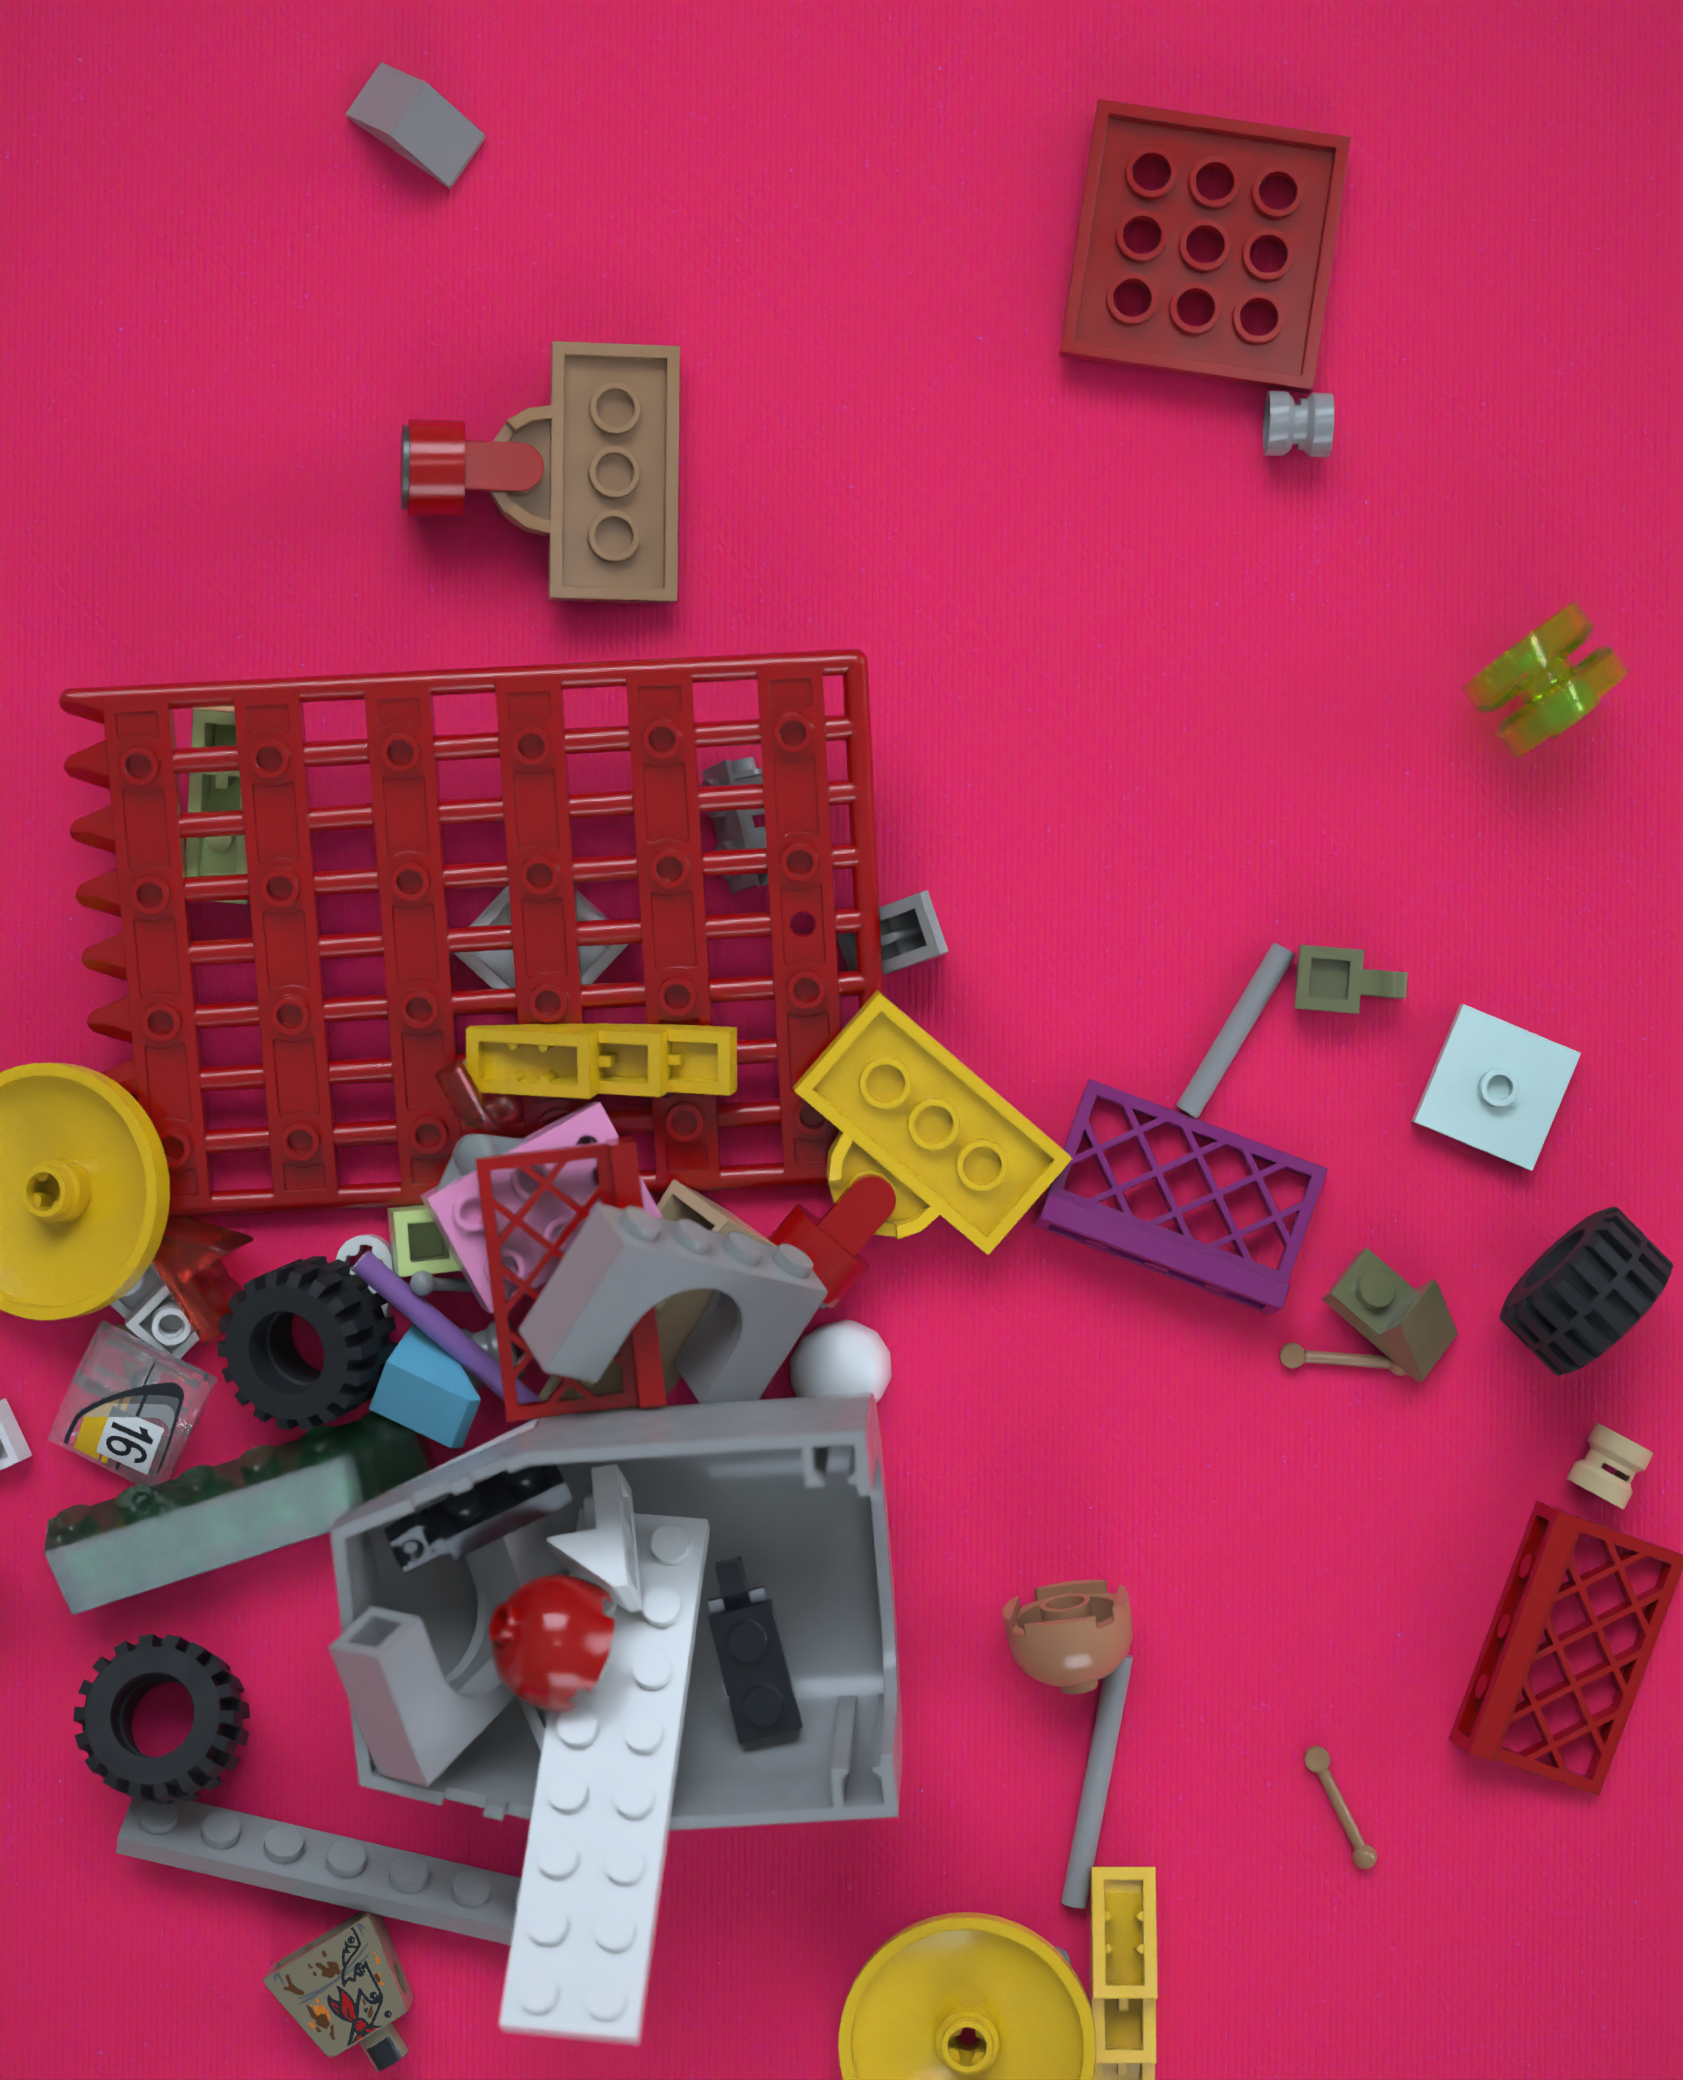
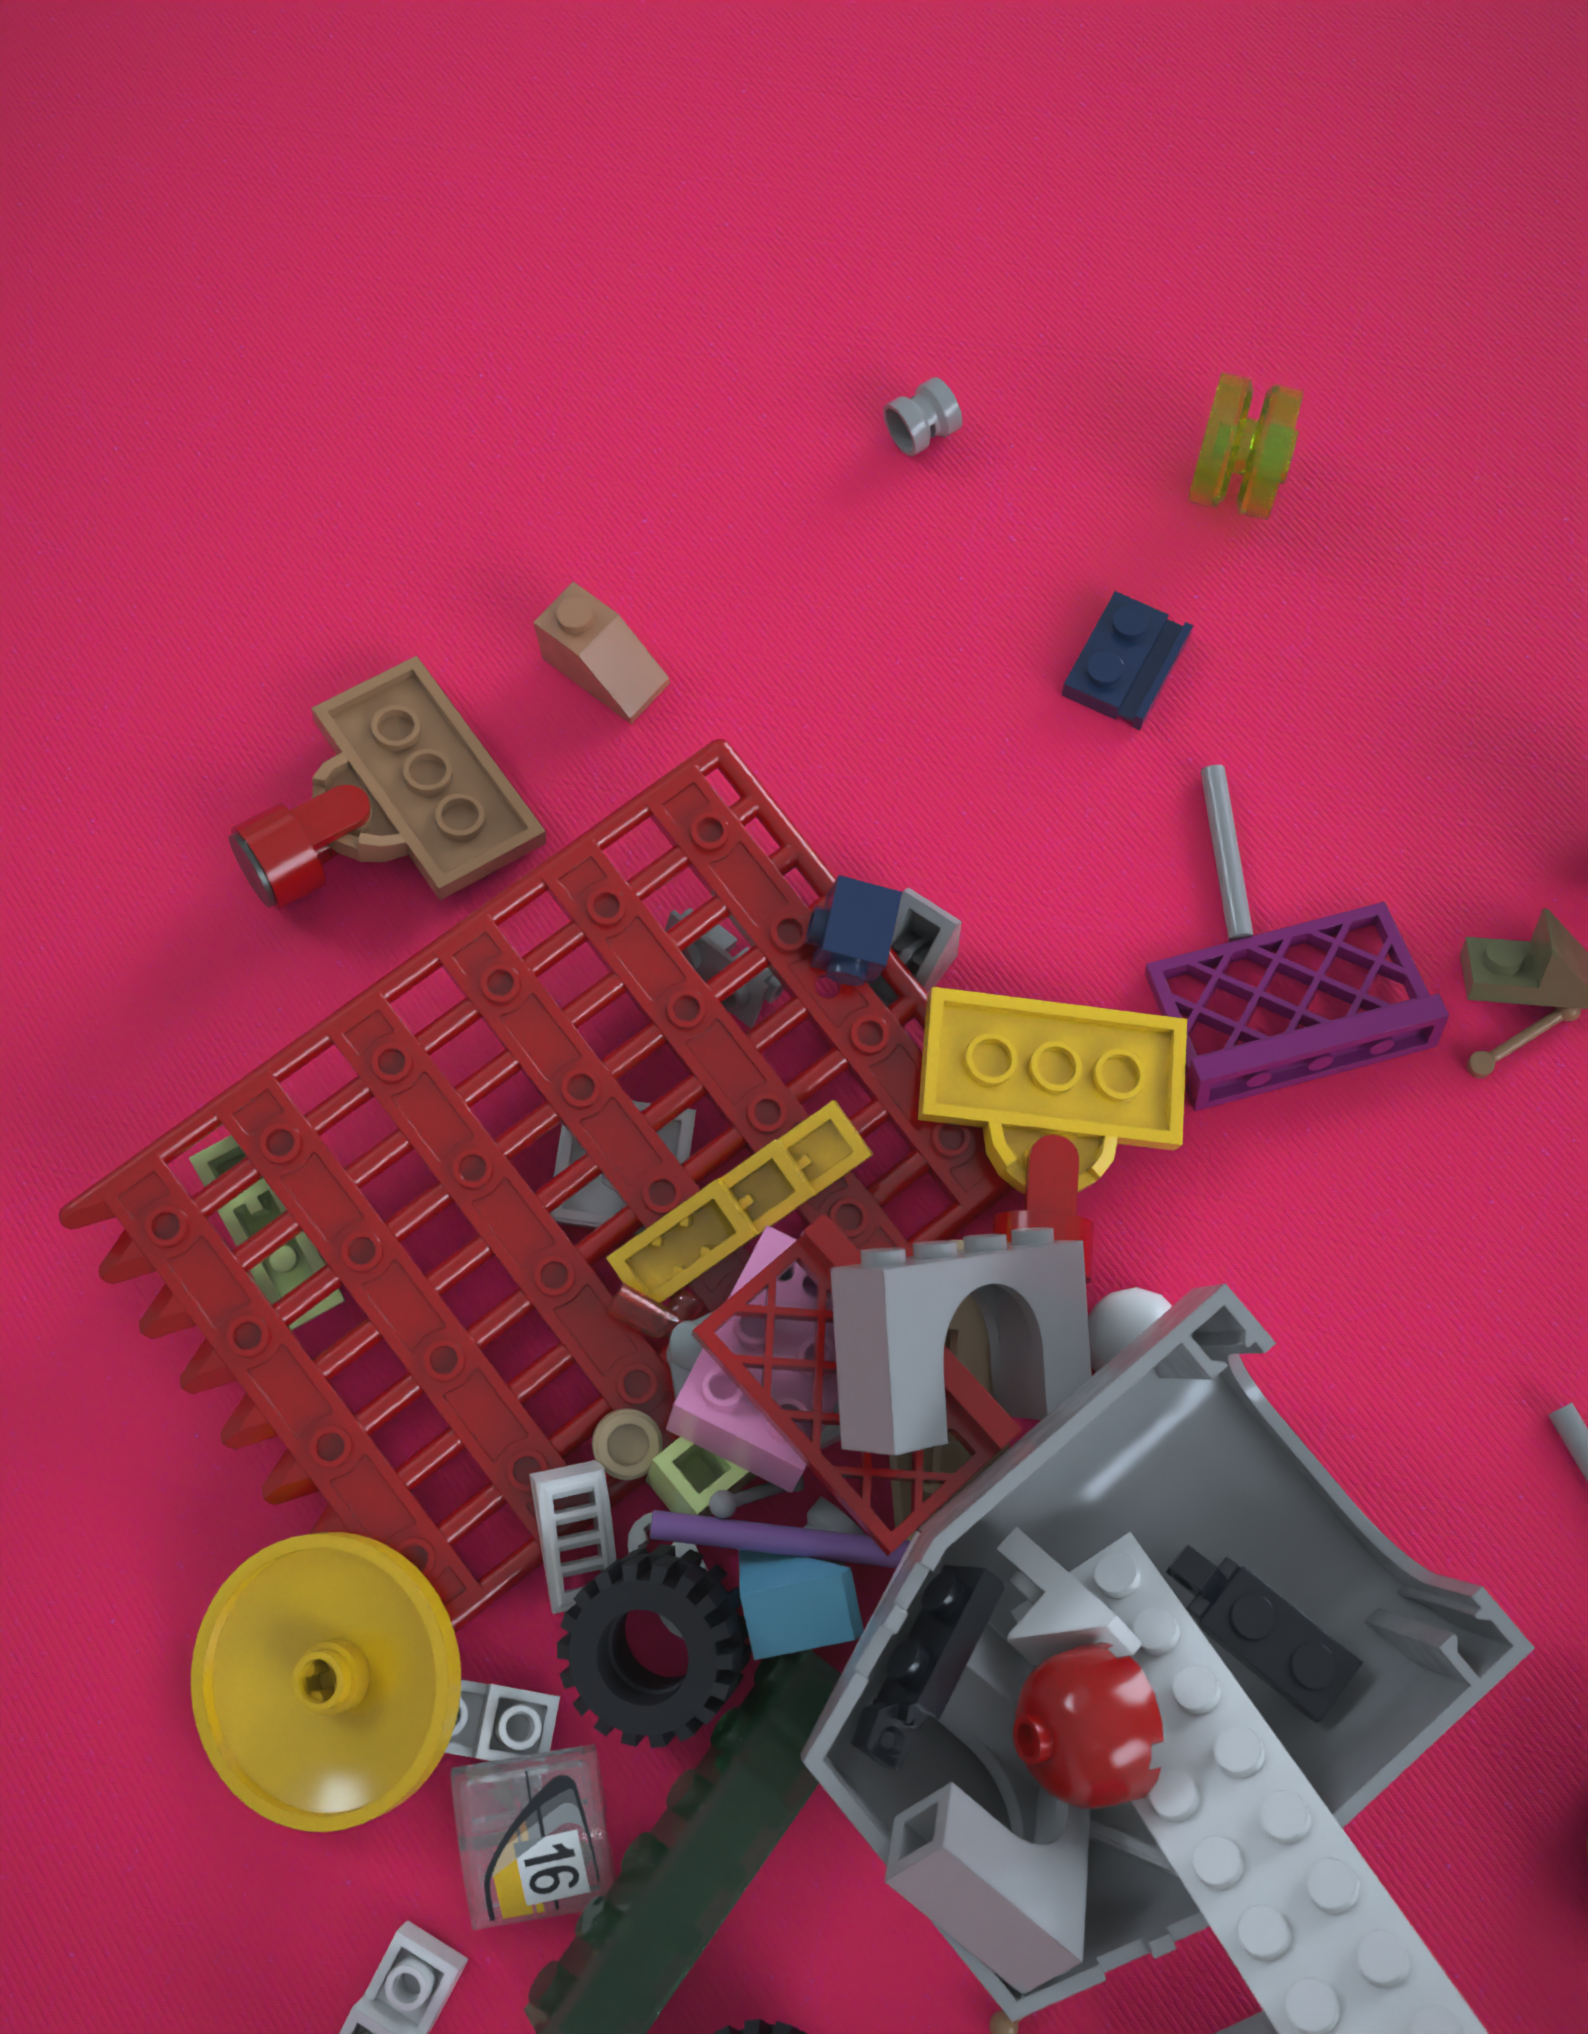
camera: 30 degrees left, 20 degrees down
(194, 1272) = (500, 1656): clear red slope -> none
(317, 1175) = (563, 1483): none -> white slope
(389, 1175) = (626, 1443): none -> tan tile
(416, 123) = (102, 640): light grey slope -> none
(841, 462) = (599, 652): none -> nougat slope
(846, 905) = (853, 930): none -> dark blue brick
(1070, 1633) = (1512, 1412): nougat cylinder -> none
(1249, 155) = (775, 428): red piece -> none
(1294, 793) = (1126, 660): none -> dark blue plate
(1335, 979) = (1275, 761): olive plate -> none
(1496, 1087) = (1455, 758): light aqua plate -> none

